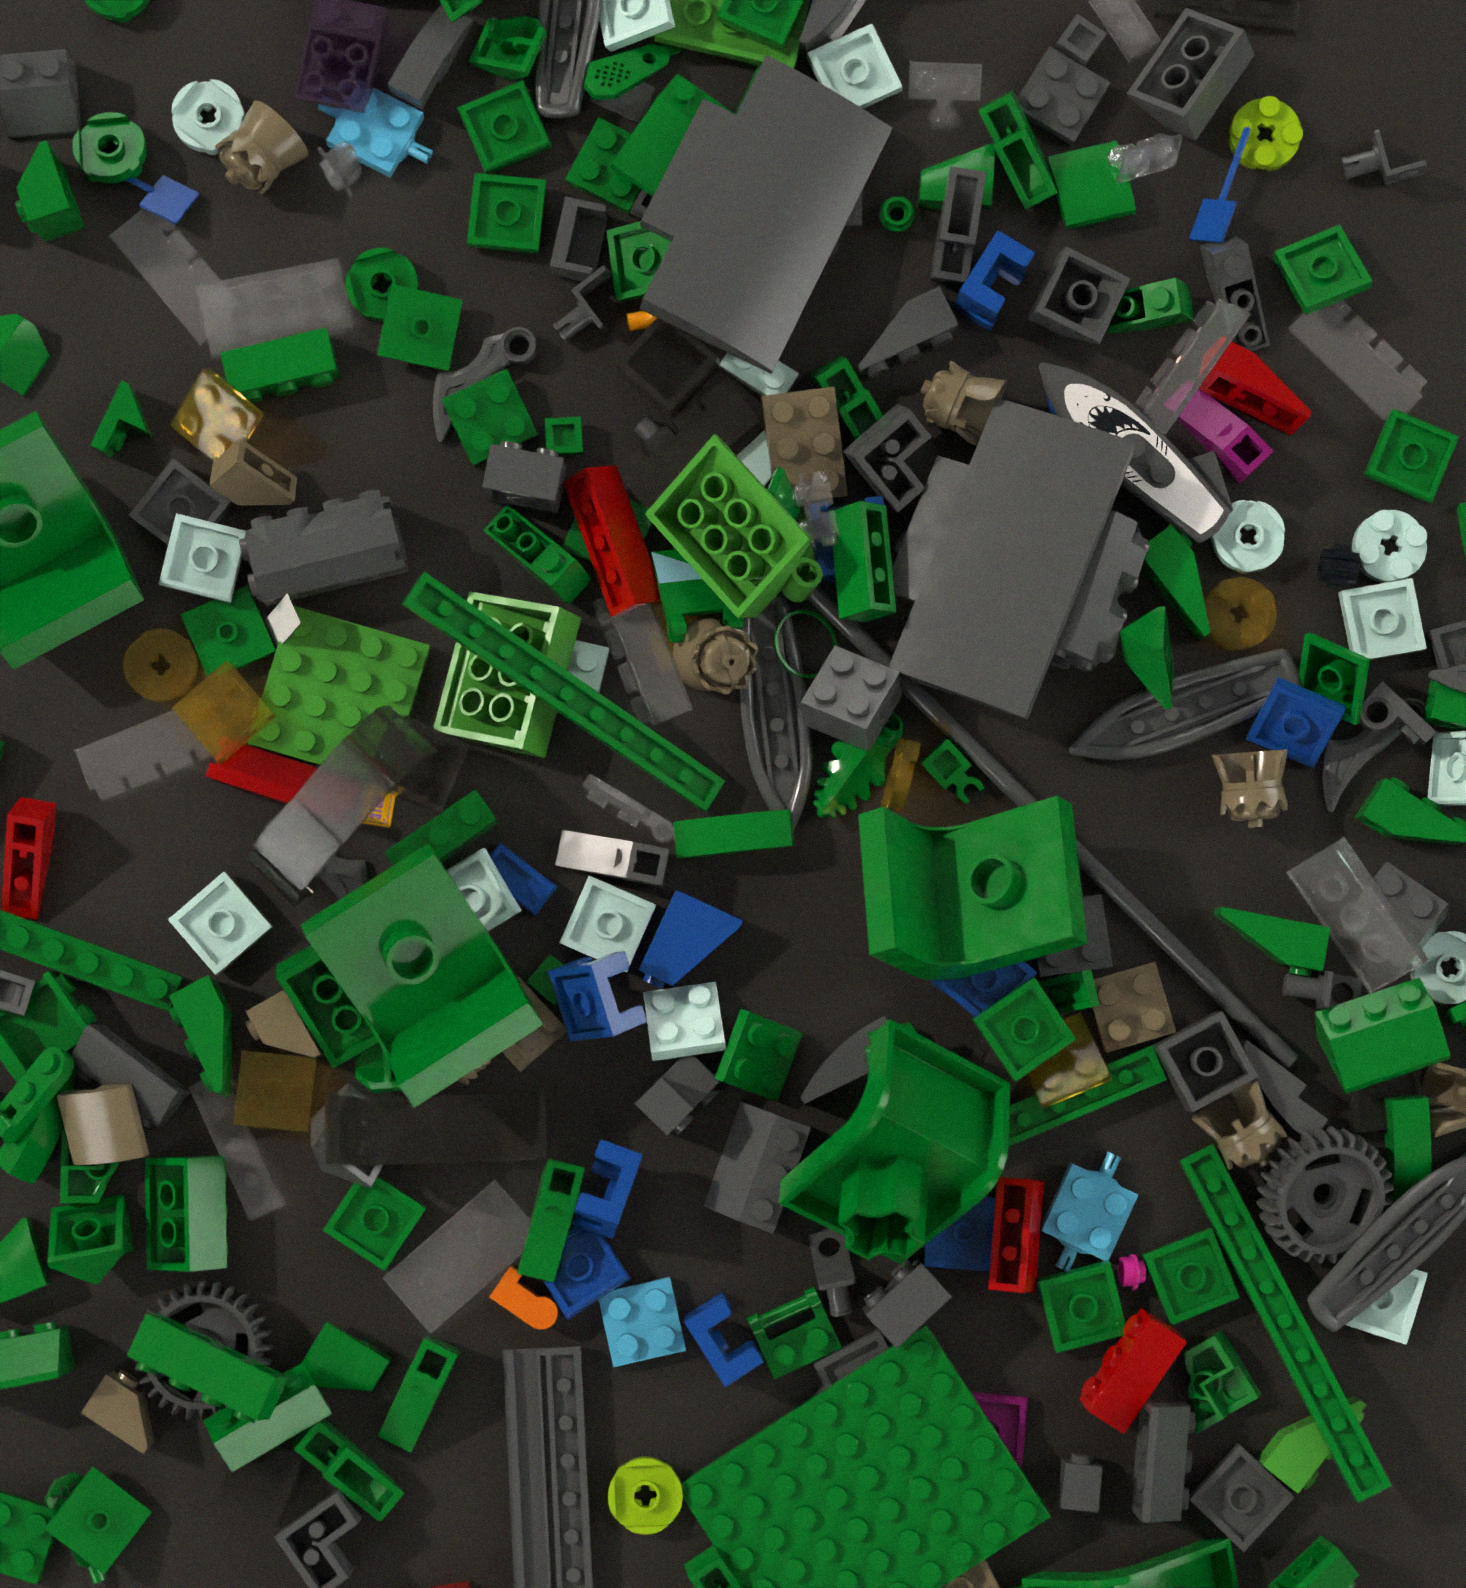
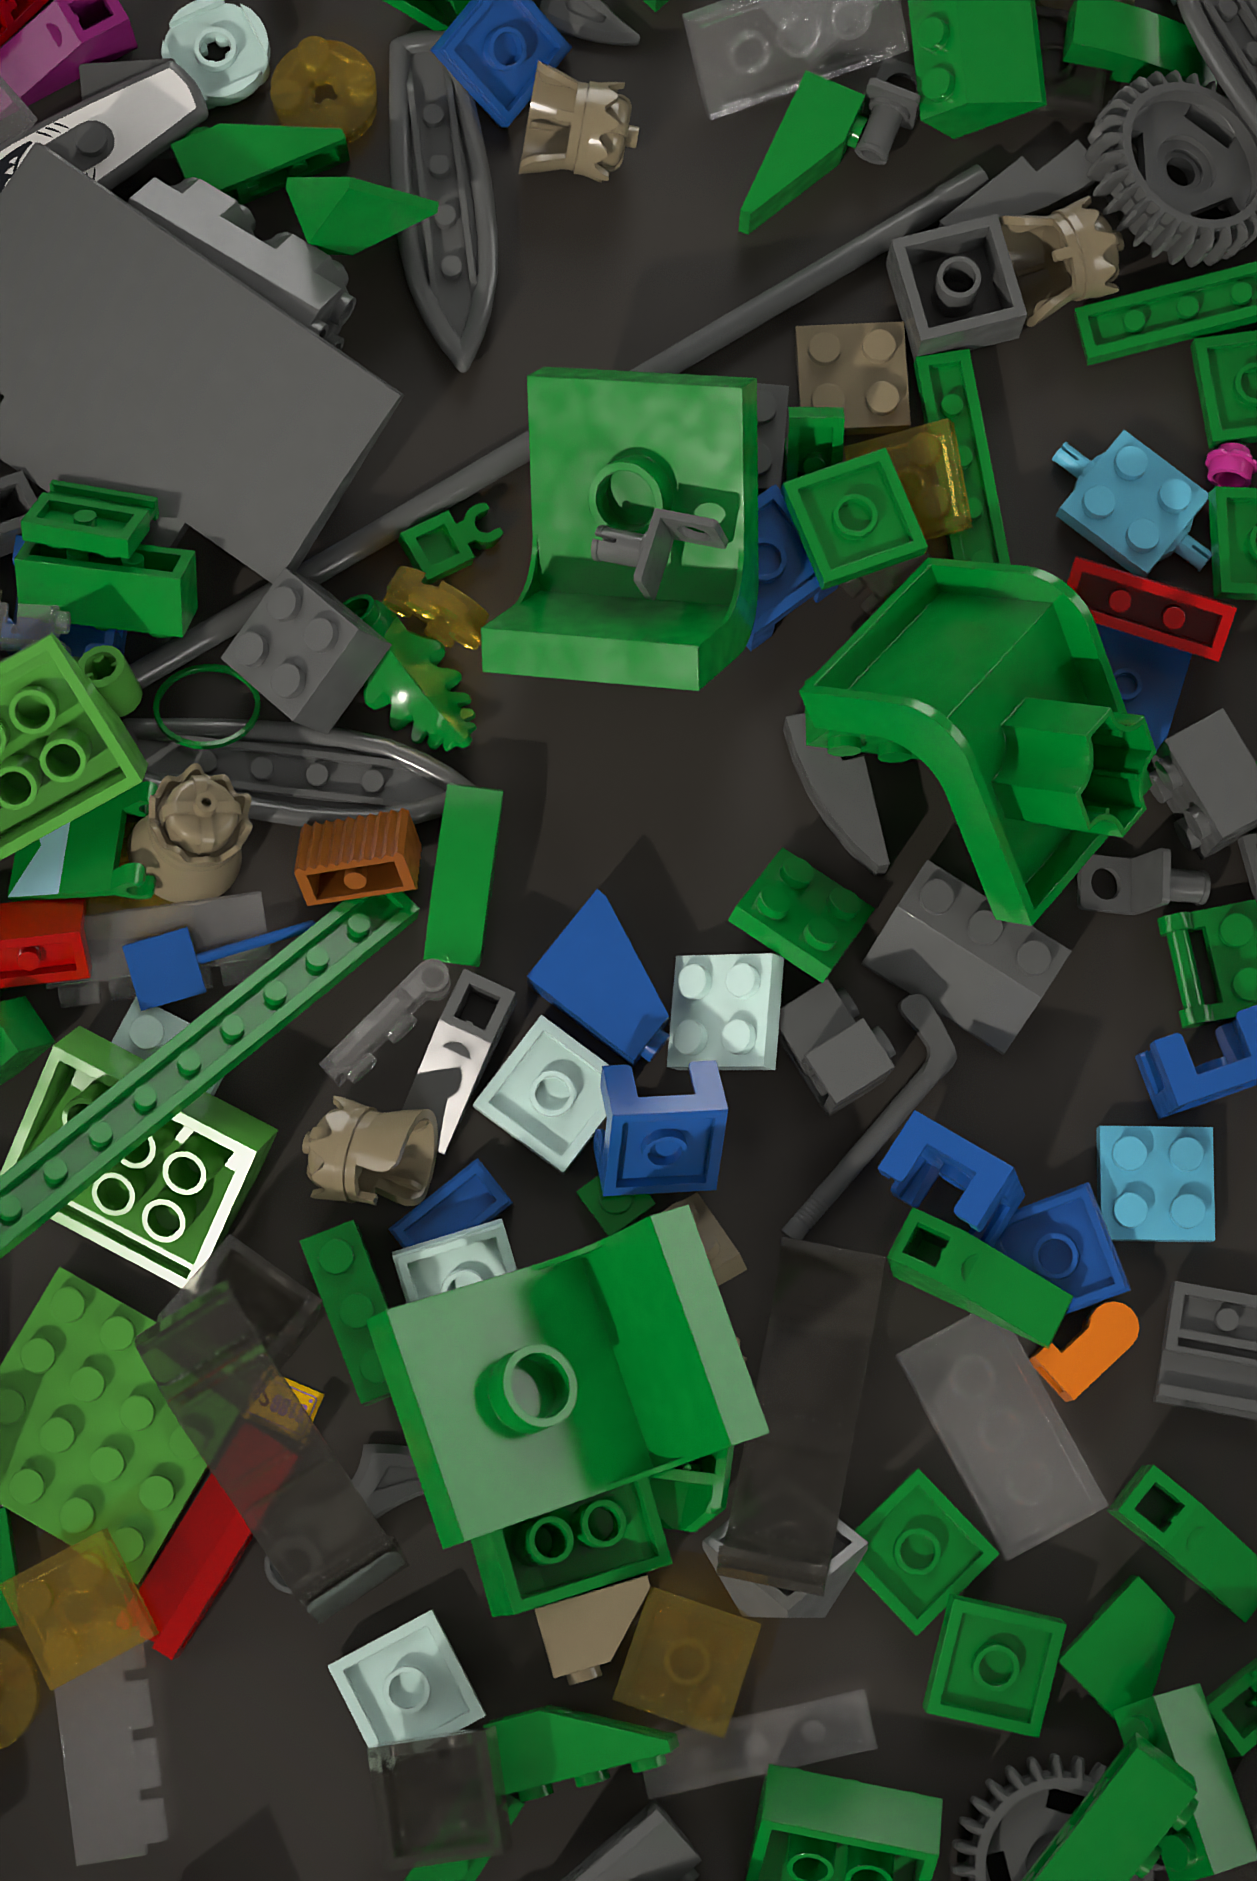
camera: 75 degrees left, 5 degrees down
(157, 959) = (440, 1798): none -> clear smoke piece
(315, 1282) = (994, 1665): none -> green plate
(542, 815) = (372, 1152): none -> dark tan hat
(630, 664) = (169, 968): none -> blue piece
(685, 1164) = (940, 1059): none -> dark grey piece
(727, 764) = (358, 857): none -> dark orange brick
(899, 541) = (90, 519): none -> green plate
(960, 903) = (651, 550): none -> dark grey bracket

